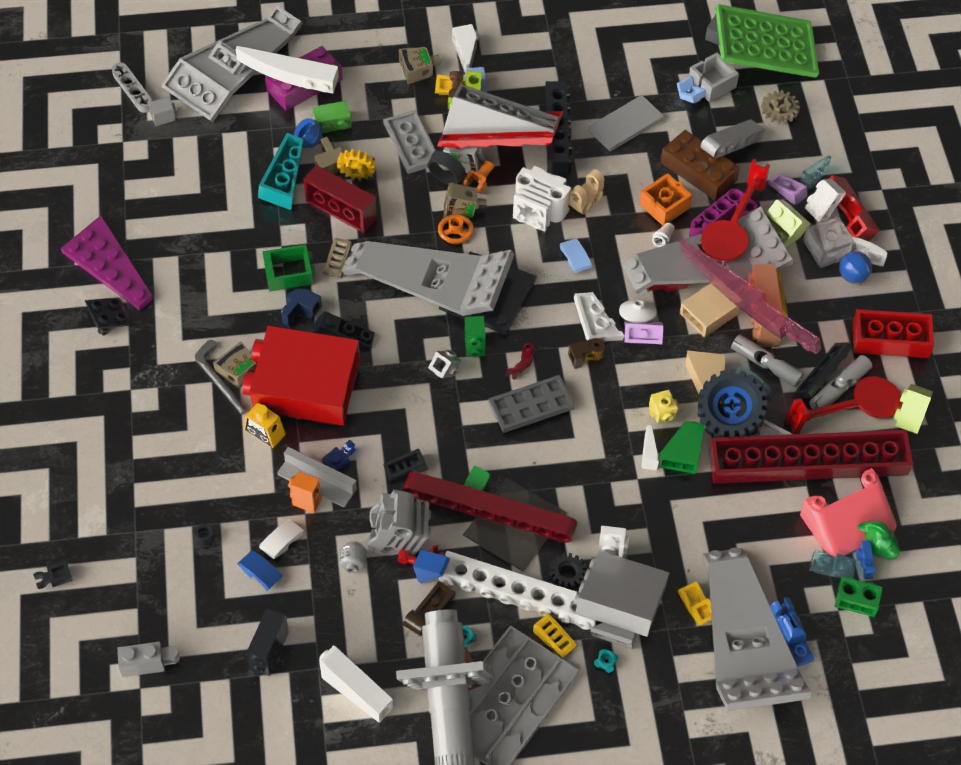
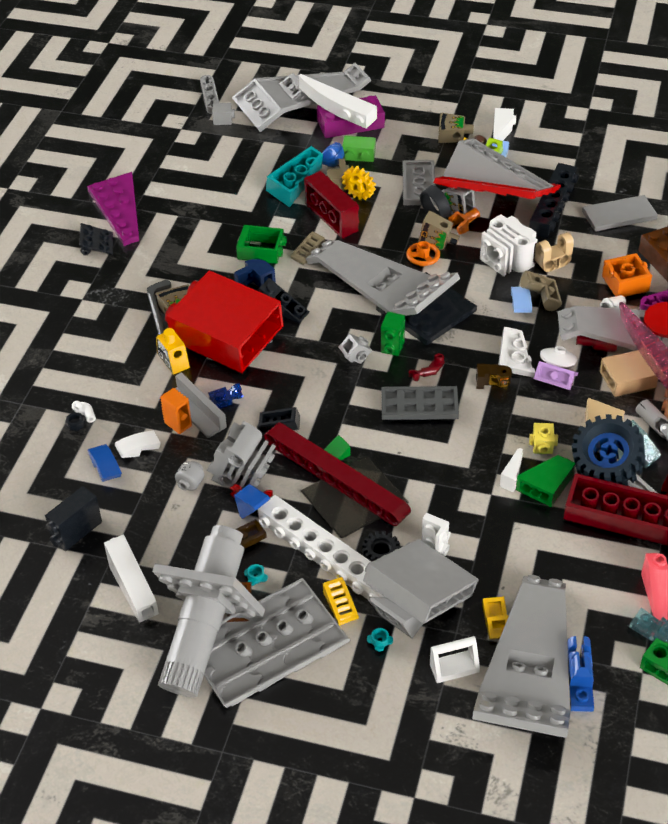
camera: 25 degrees right, 10 degrees down
(207, 517) = (84, 409): none -> white arm
(595, 235) = (545, 286): none -> dark tan brick
(682, 658) = (457, 664): none -> white tile

